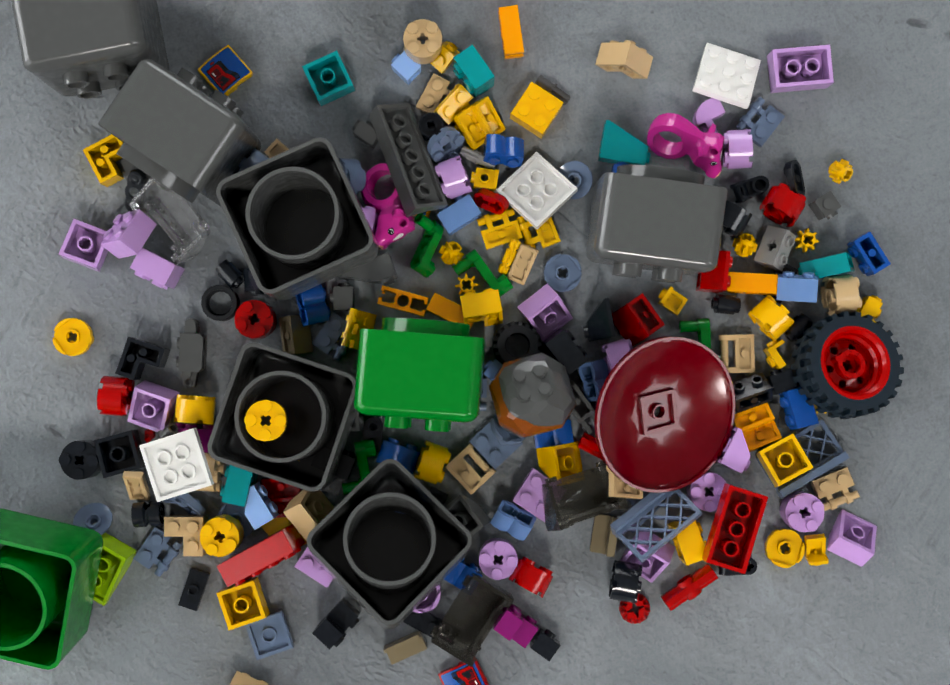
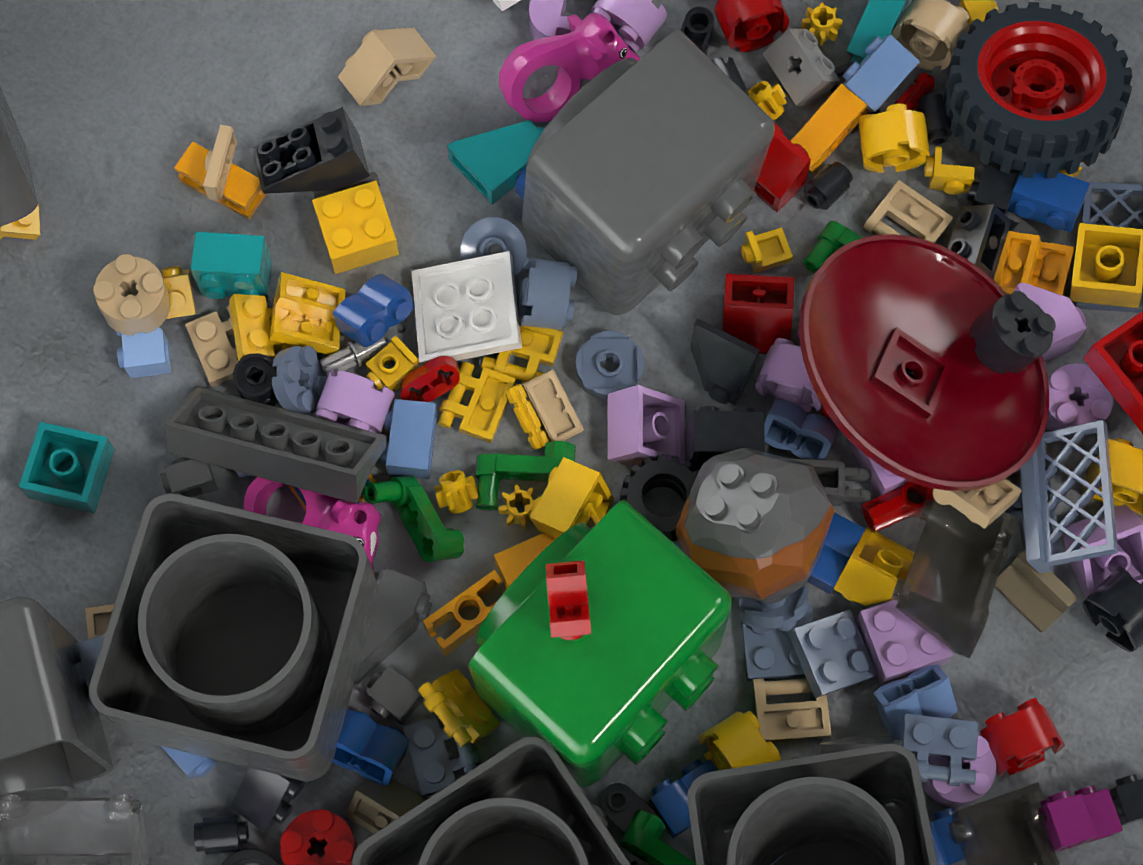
camera: 50 degrees left, 15 degrees down
(414, 352) = (568, 600): none -> red brick
(502, 544) = (941, 738): none -> sand blue plate
(507, 469) = (832, 653): none -> sand blue plate
(514, 26) = (219, 163): none -> tan plate
(552, 64) = (312, 157): none -> black slope
(570, 220) = (546, 294): none -> sand blue brick
(711, 443) = (1012, 333): none -> black brick
(797, 308) = (923, 85): none -> red axle

